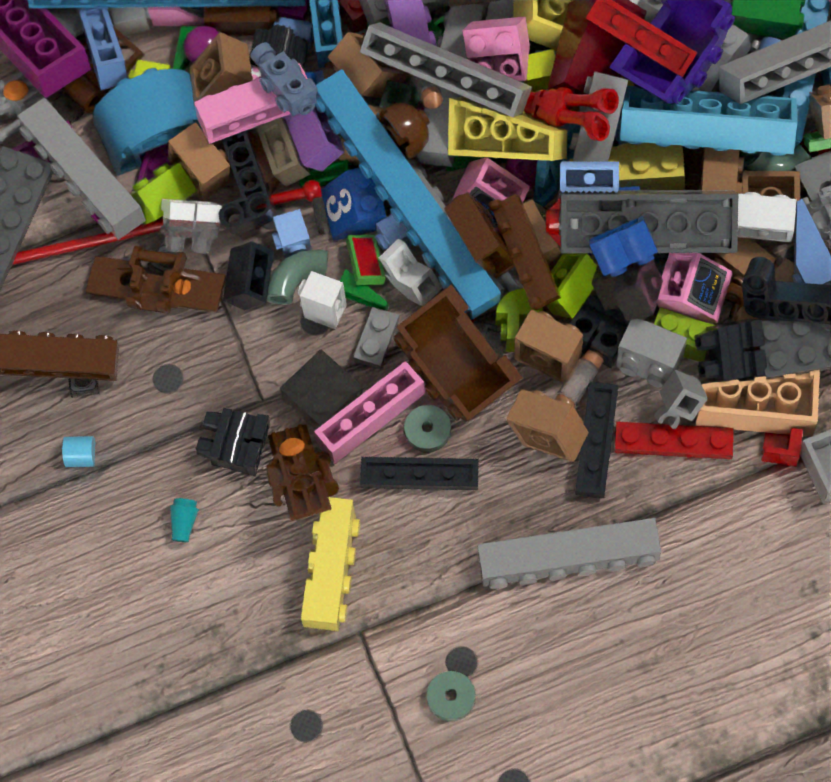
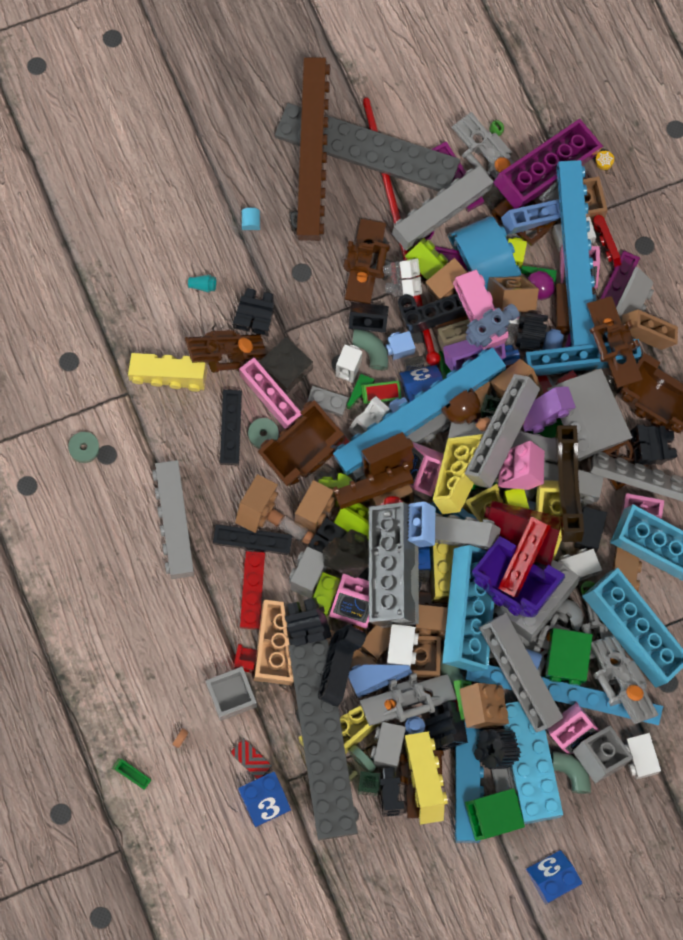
camera: 80 degrees right, 5 degrees up
(555, 105) = (474, 503): red piece -> none
(623, 246) = (368, 544): blue brick -> none
(682, 398) = (274, 589): light grey brick -> none

